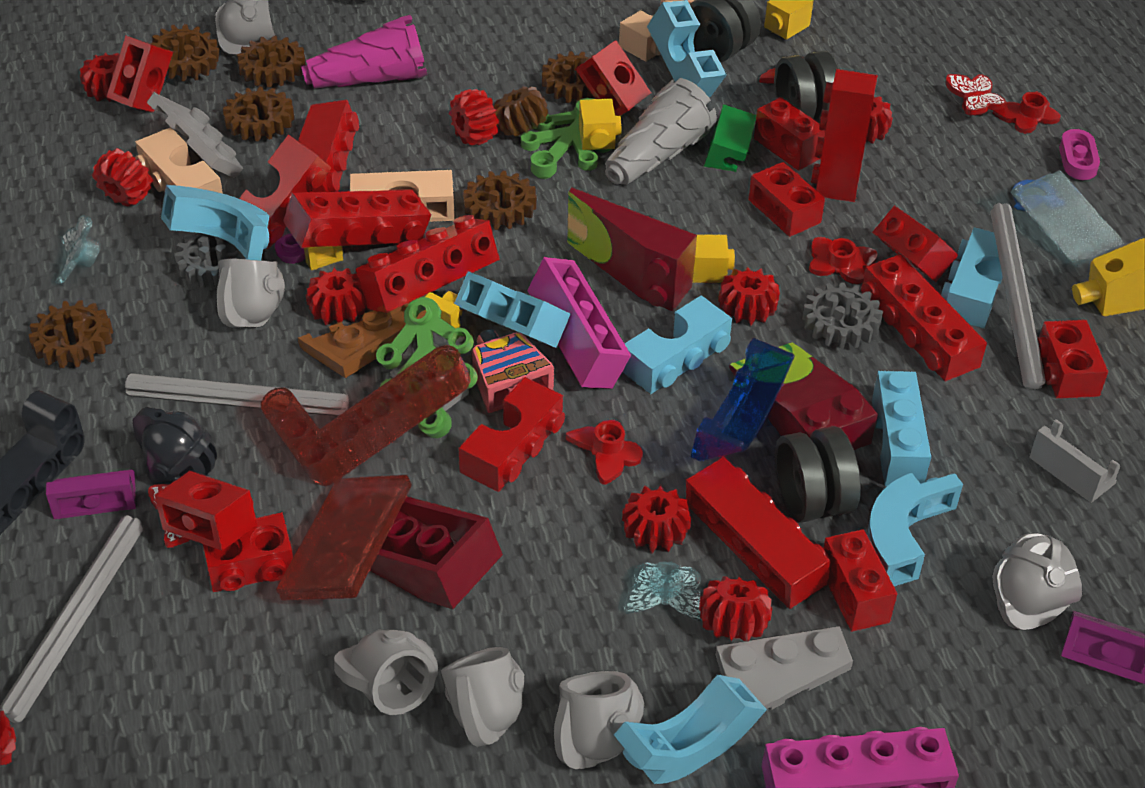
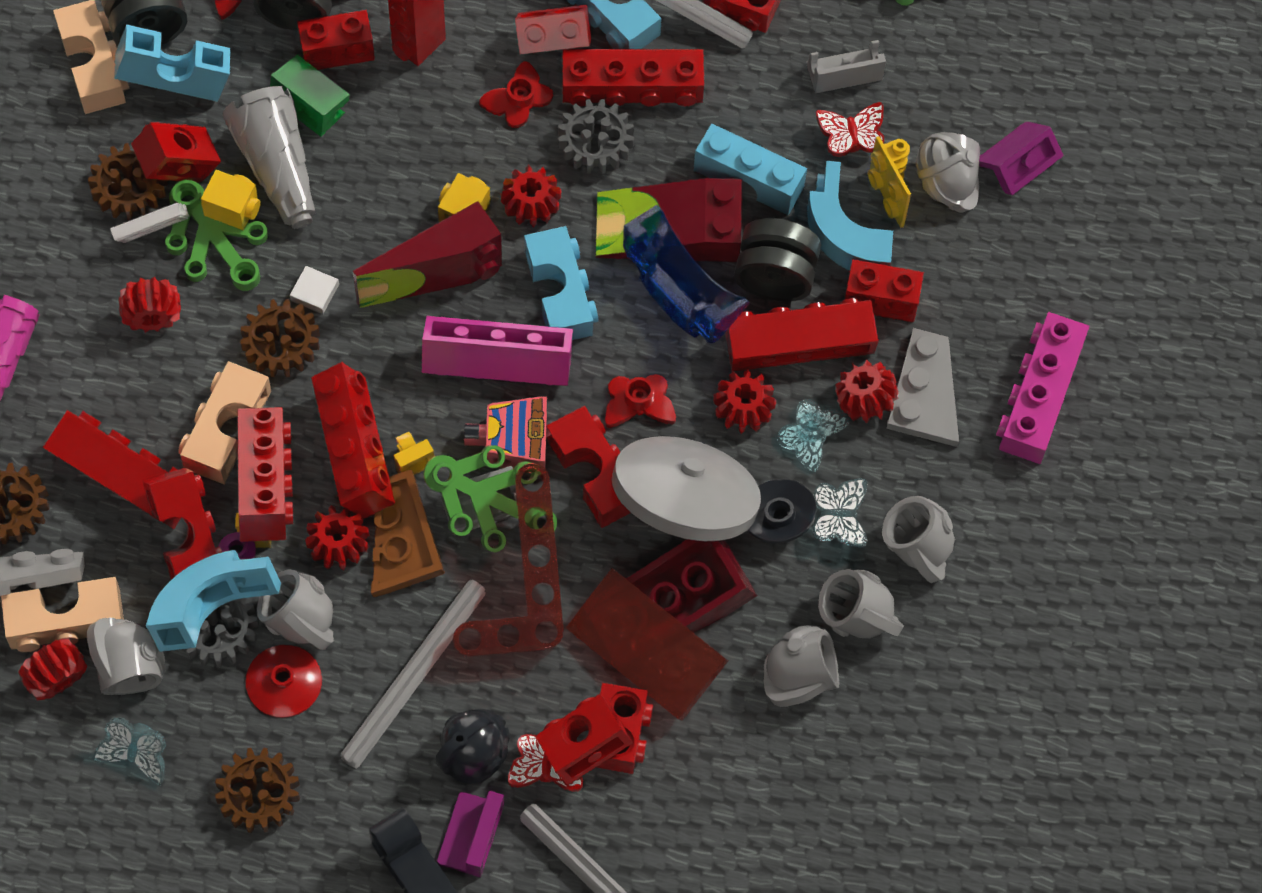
camera: 65 degrees left, 20 degrees up
(141, 205) = (124, 657): none -> light grey helmet
(188, 321) = (286, 697): none -> red dish
(512, 309) = (436, 405): medium azure arch -> none
(520, 494) = (686, 488): none -> light grey dish
(521, 111) = (162, 256): reddish brown gear -> none
(553, 93) = (150, 223): none -> white tile
(554, 589) = (786, 499): none -> black dish
(556, 208) = (314, 289): none -> white tile
(587, 642) = (840, 512): none -> clear light blue animal
(695, 735) = (962, 477): medium azure arch -> none
(786, 199) = (423, 103): red brick -> none
(986, 530) = (887, 174): none -> yellow hinge
(1007, 493) = (851, 133): none -> red animal

